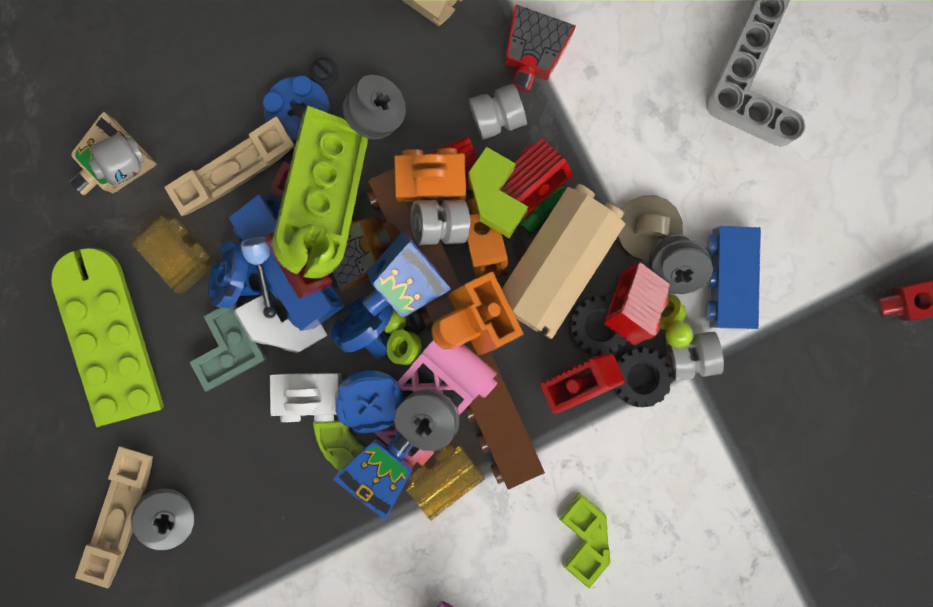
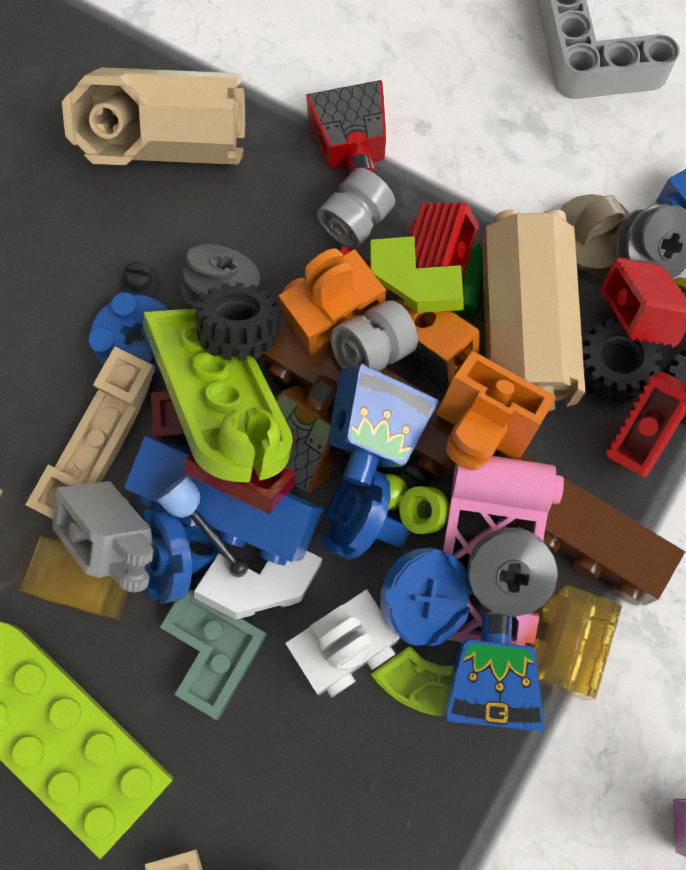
camera: 30 degrees left, 15 degrees down
(199, 241) = (104, 533): none -> light grey hinge
(367, 137) = (237, 321): none -> black tyre

